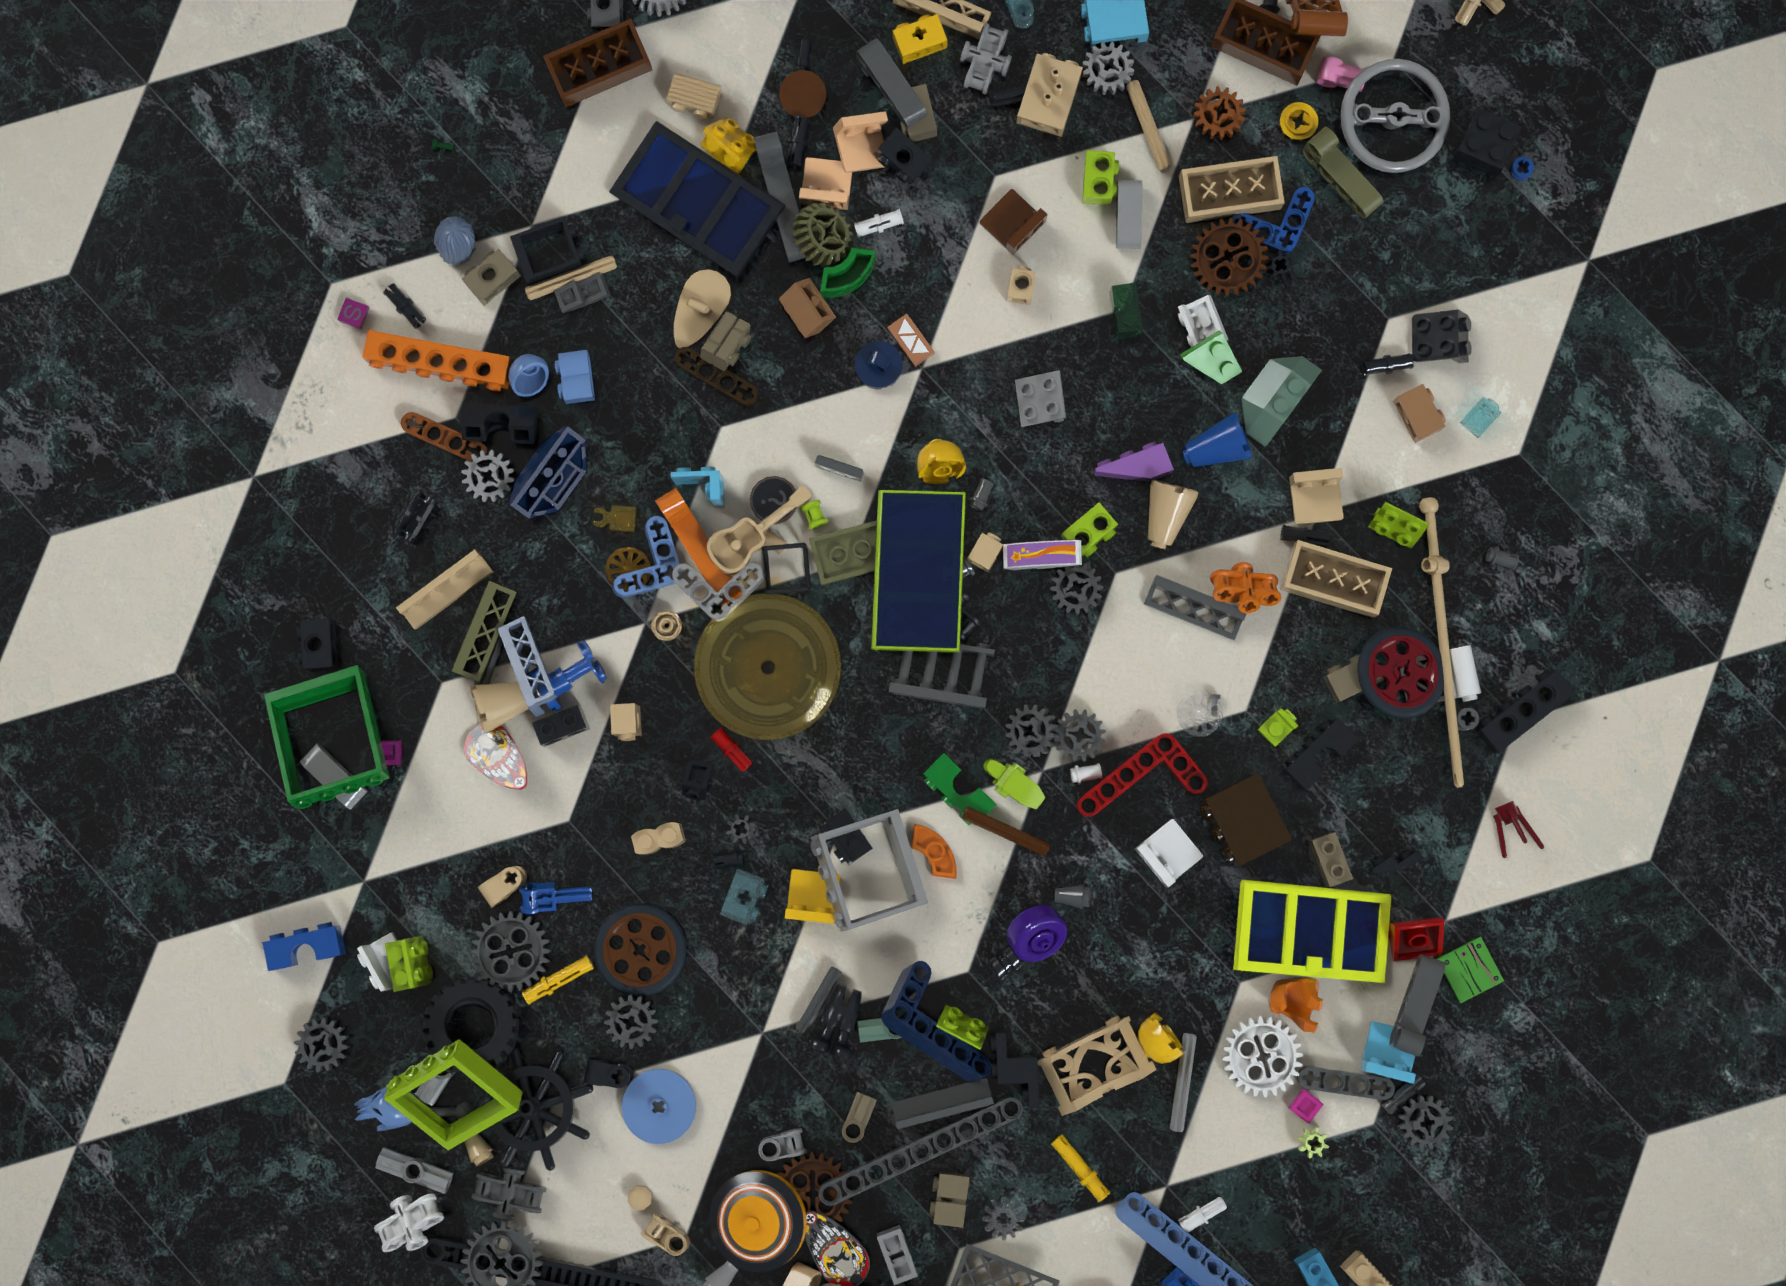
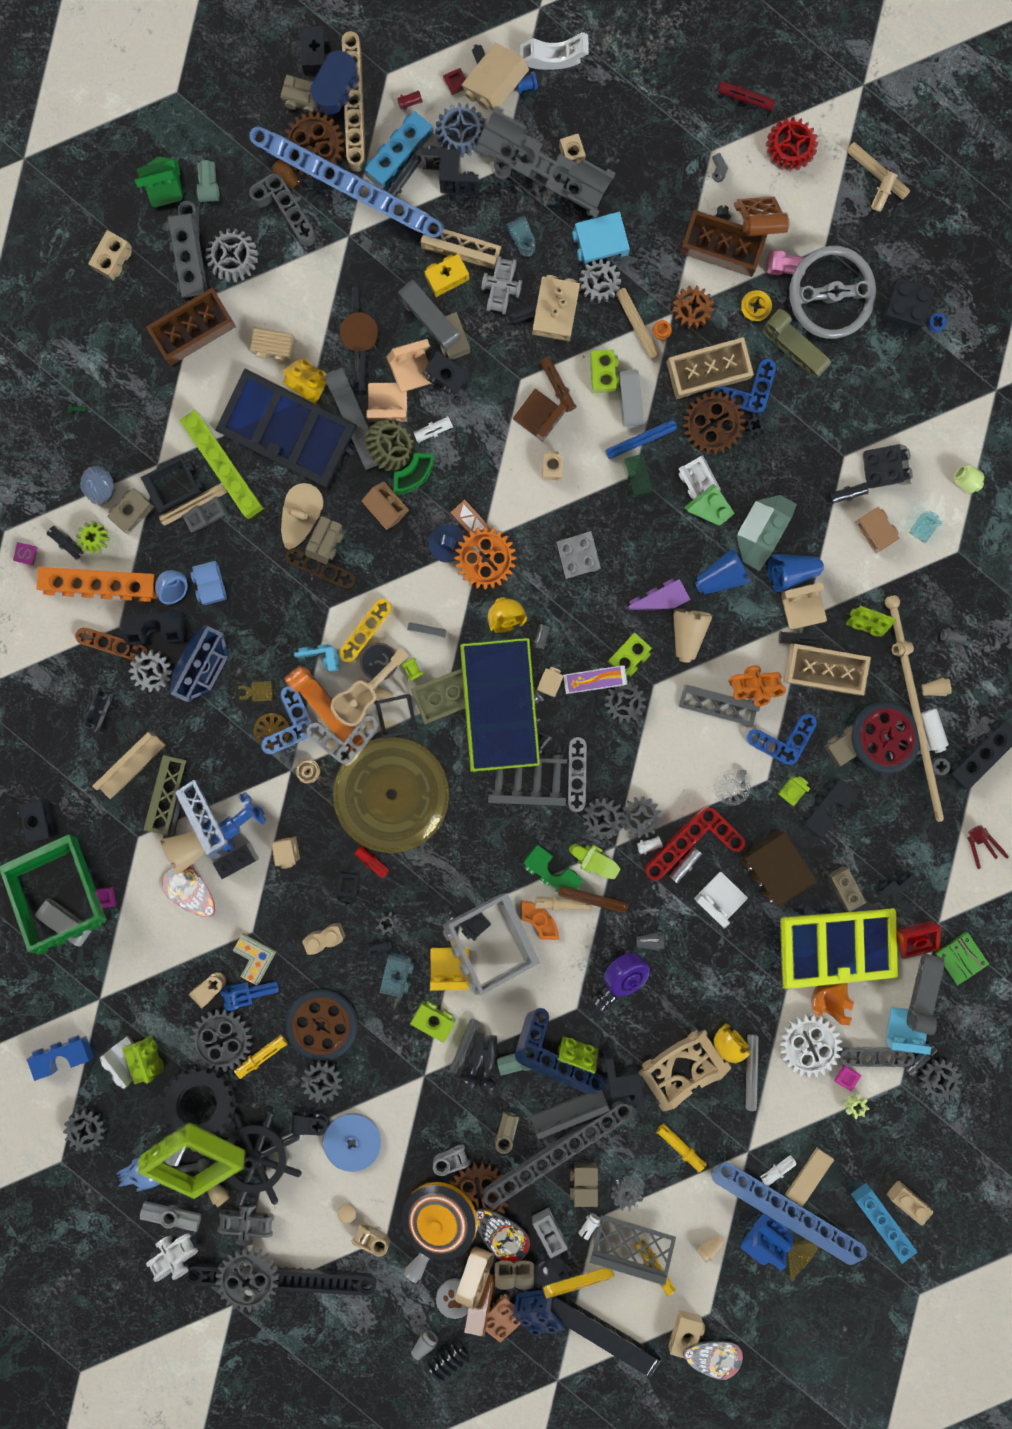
camera: 15 degrees left, 5 degrees up
(449, 305) = (86, 535): none -> lime gear
(573, 853) = (258, 955): none -> tan tile
(612, 233) = (221, 464): none -> lime arch
(759, 457) = (368, 632): none -> yellow beam
(769, 960) = (438, 1031): none -> lime brick
(939, 375) = (497, 545): none -> orange gear
(950, 1254) = (591, 1223): none -> white pin
(964, 832) = (560, 903): none -> tan pin
(1005, 672) = (580, 774): none -> light grey beam
(1030, 162) = (547, 364): none -> reddish brown pin
(1128, 803) = (685, 864): none -> light grey pin
(1136, 266) = (641, 439): none -> blue axle
(1177, 136) = (661, 330): none -> orange plate
(1242, 1228) = (809, 1177): none -> tan tile
(1279, 669) = (789, 745): none -> blue beam
(1307, 449) = (792, 570): none -> blue cone
(1474, 620) = (937, 688): none -> tan cone
(1542, 364) = (969, 479): none -> yellowish green head

